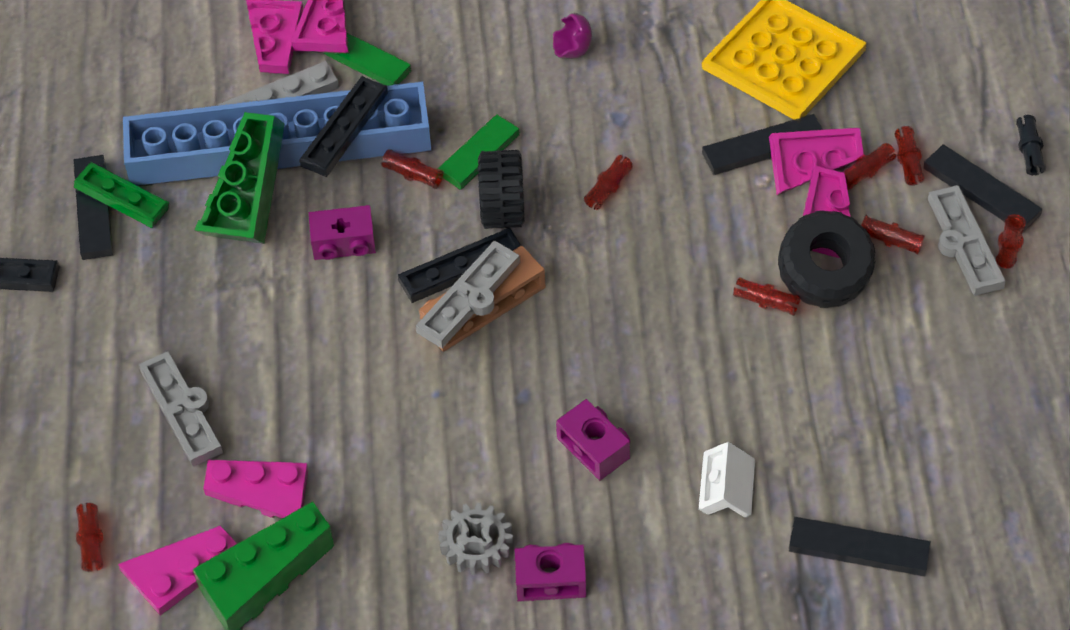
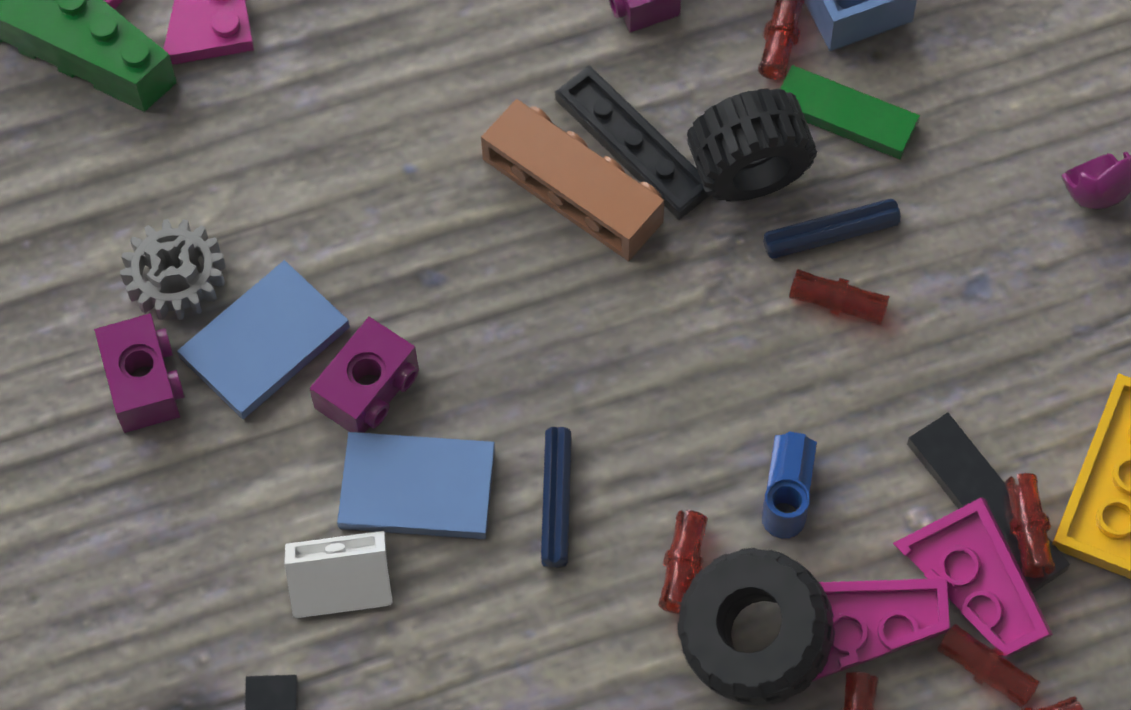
camera: 75 degrees right, 10 degrees up
(468, 295) = (545, 149): light grey hinge -> none
(542, 497) = (263, 339): none -> medium blue tile
(559, 176) = (832, 228): none -> dark blue axle
(675, 429) = (416, 485): none -> medium blue tile
(704, 354) = (556, 497): none -> dark blue axle
(739, 233) = (789, 483): none -> blue piece
(789, 120) = (1030, 525): none -> clear red pin

